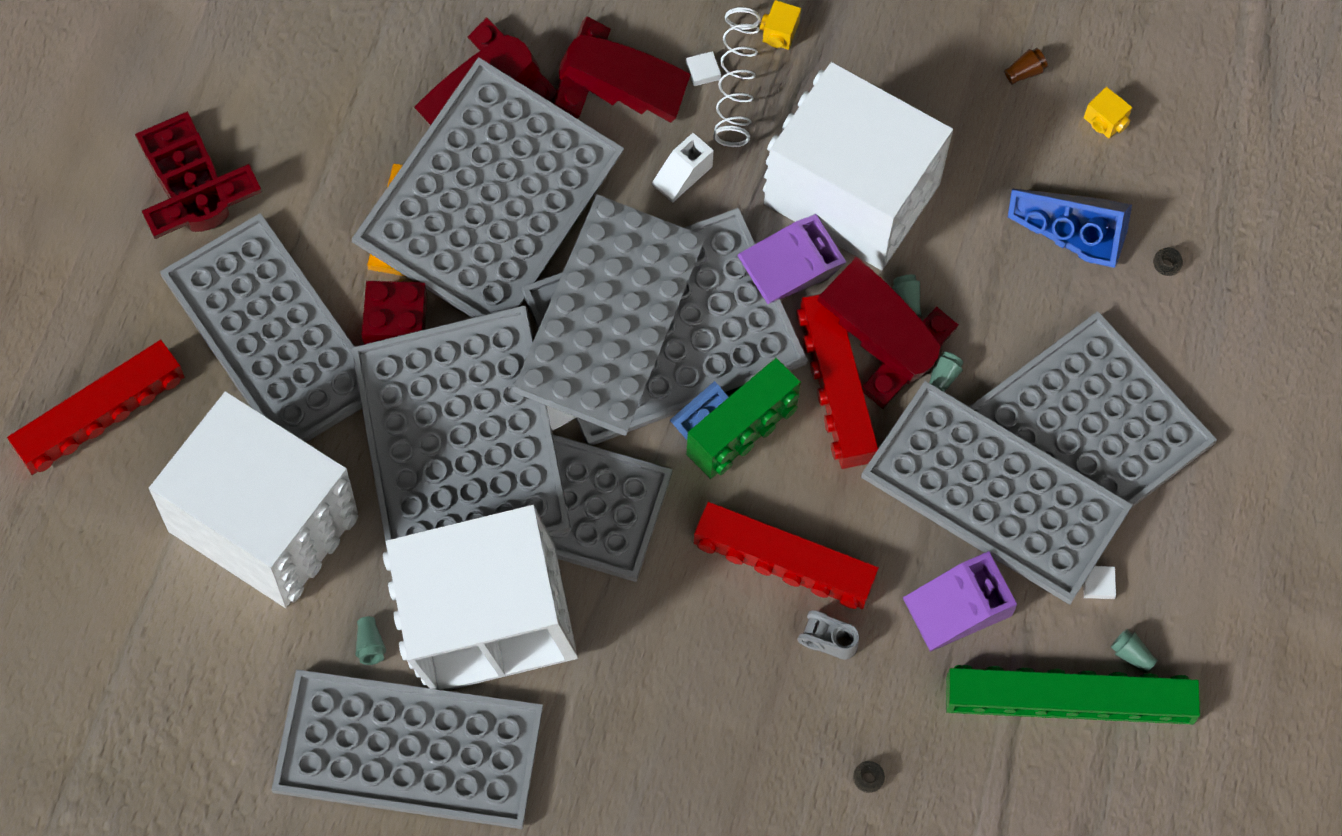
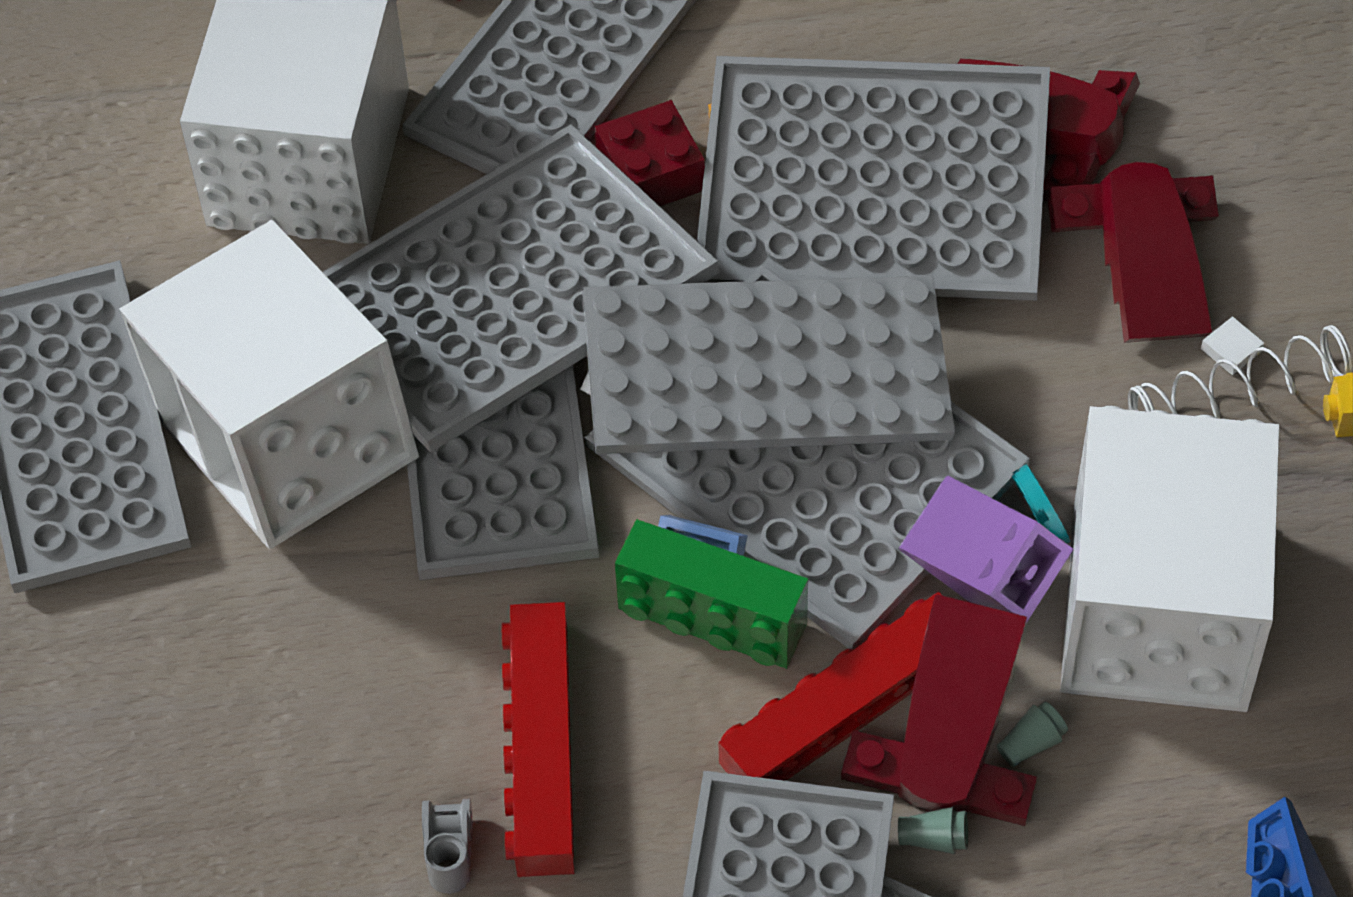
camera: 70 degrees right, 10 degrees down
(684, 167) = (1058, 377): white slope -> none
(772, 217) = (1039, 503): none -> teal tile

